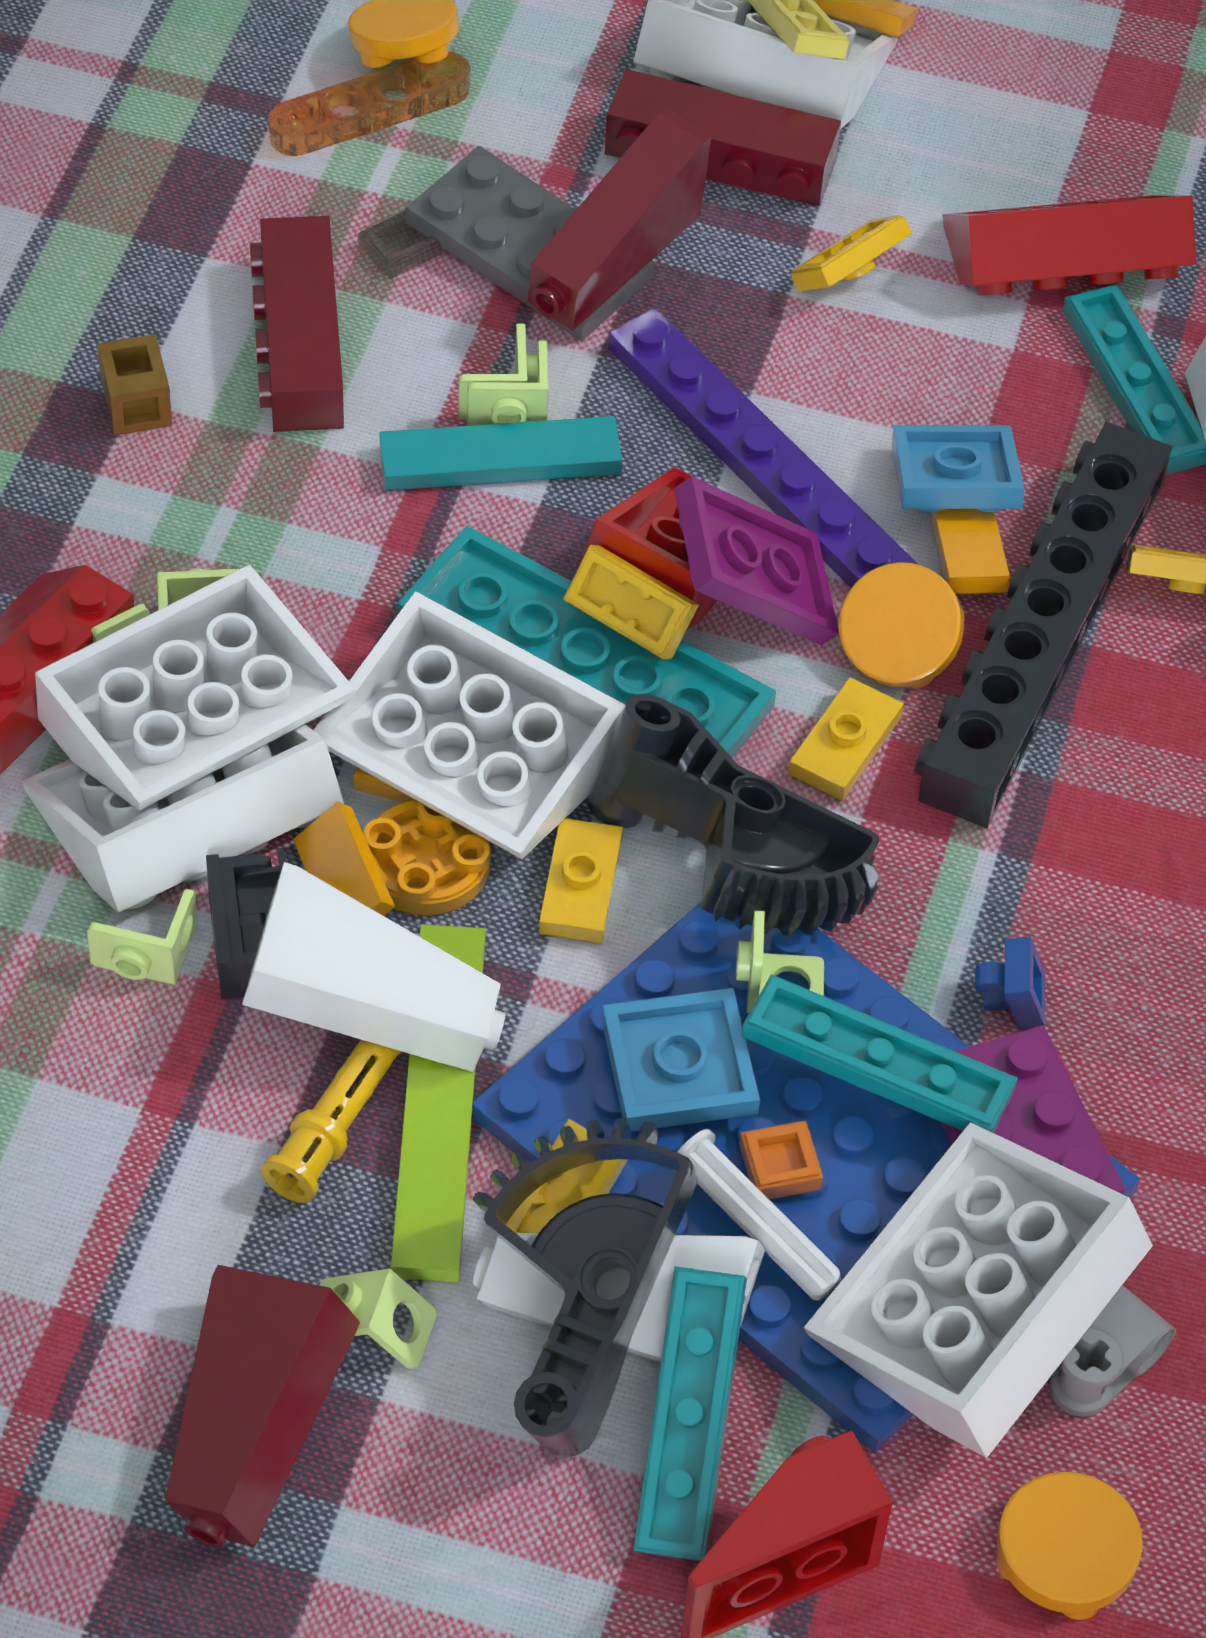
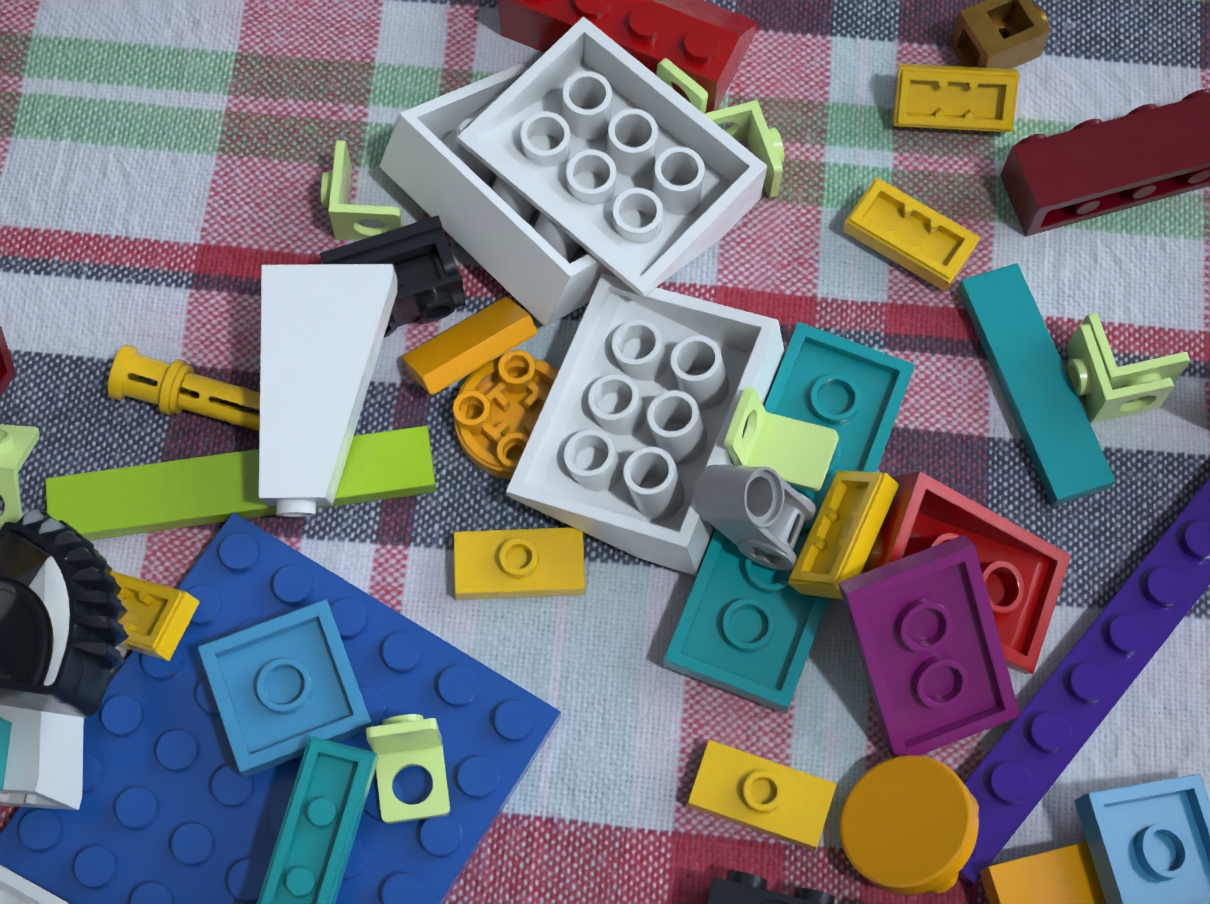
camera: 80 degrees right, 15 degrees up
(189, 434) = (955, 97): none -> yellow plate
(324, 503) = (911, 234): none -> yellow plate
(538, 621) = (789, 446): none -> yellowish green bracket
(602, 651) = (754, 511): none -> light grey piece
(751, 827) = (624, 638): black arm -> none
(760, 1217) = (114, 799): white axle -> none
(781, 1160) = (193, 810): orange tile -> none

